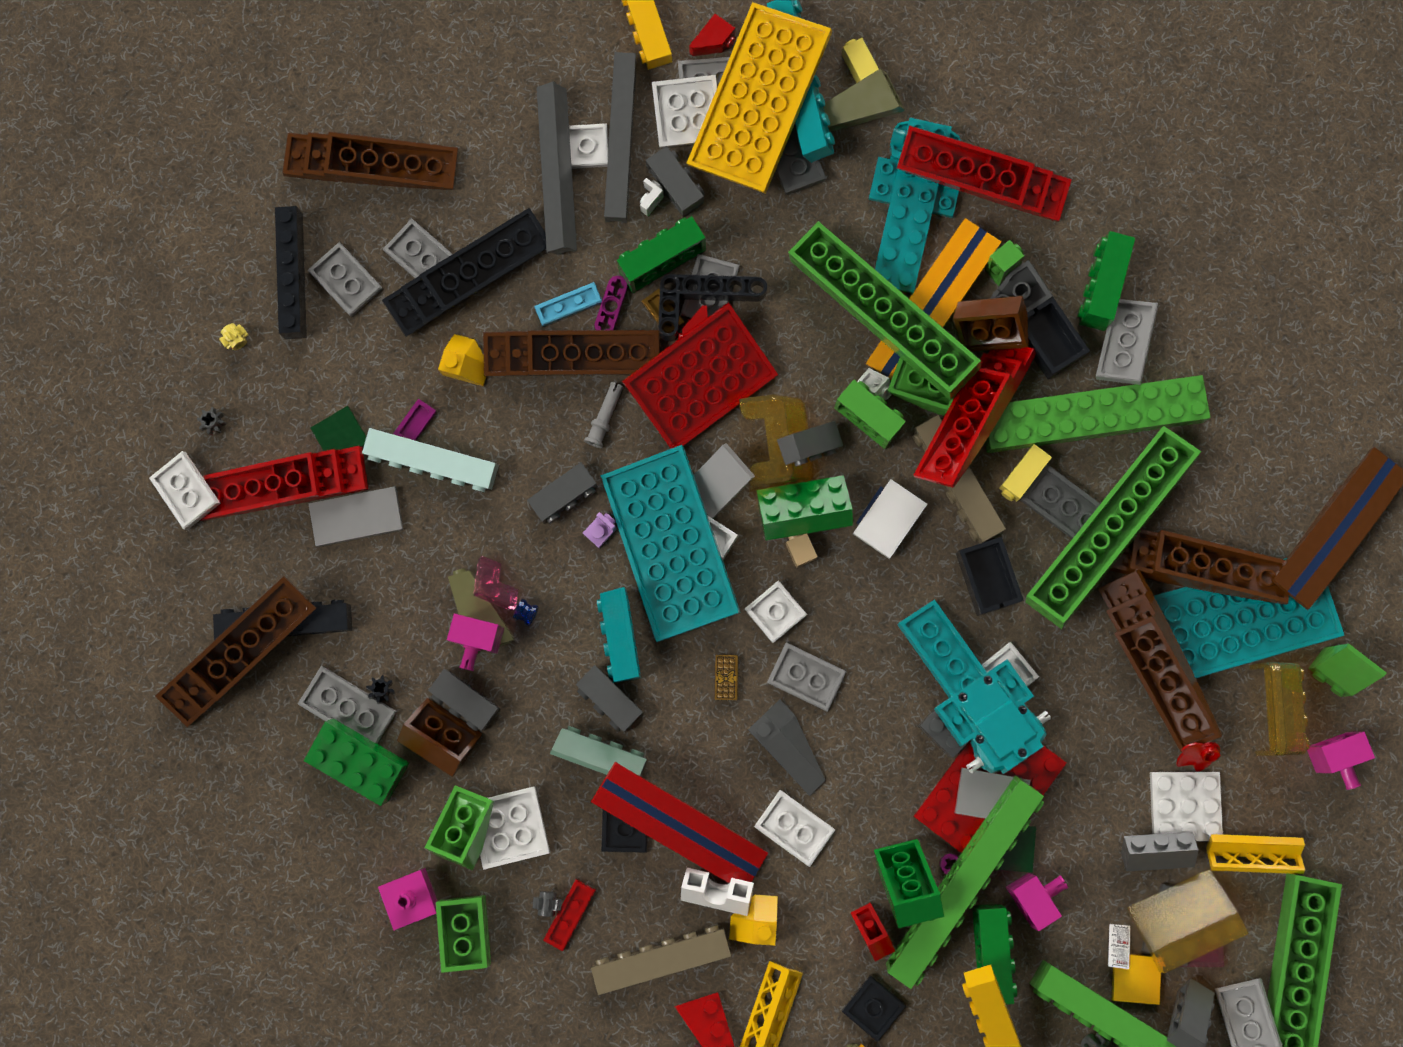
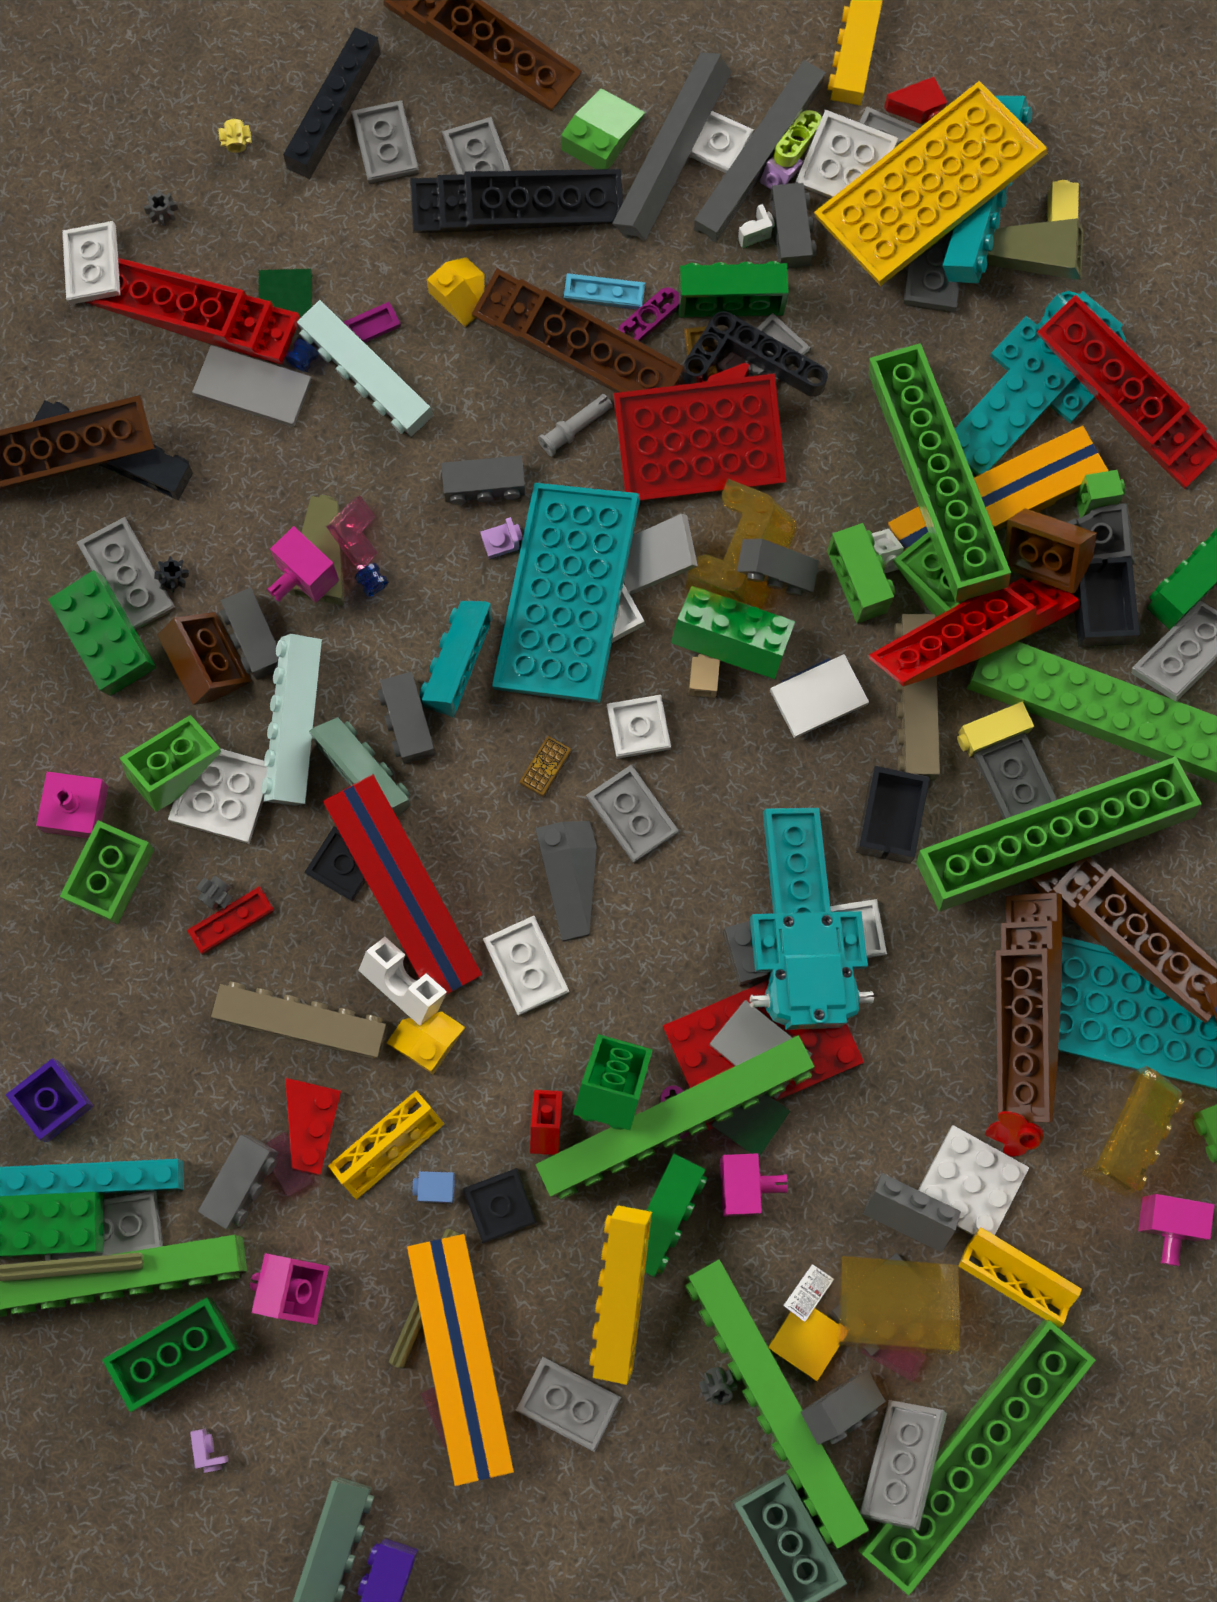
camera: 20 degrees right, 5 degrees down
(379, 474) = (302, 355): none -> clear blue wheel
(497, 184) = (600, 130): none -> bright green slope
(530, 749) = (291, 719): none -> light aqua brick
(643, 143) = (779, 175): none -> lavender bracket
(646, 120) = (797, 147): none -> lime beam
(822, 1023) = (434, 1187): none -> medium blue brick

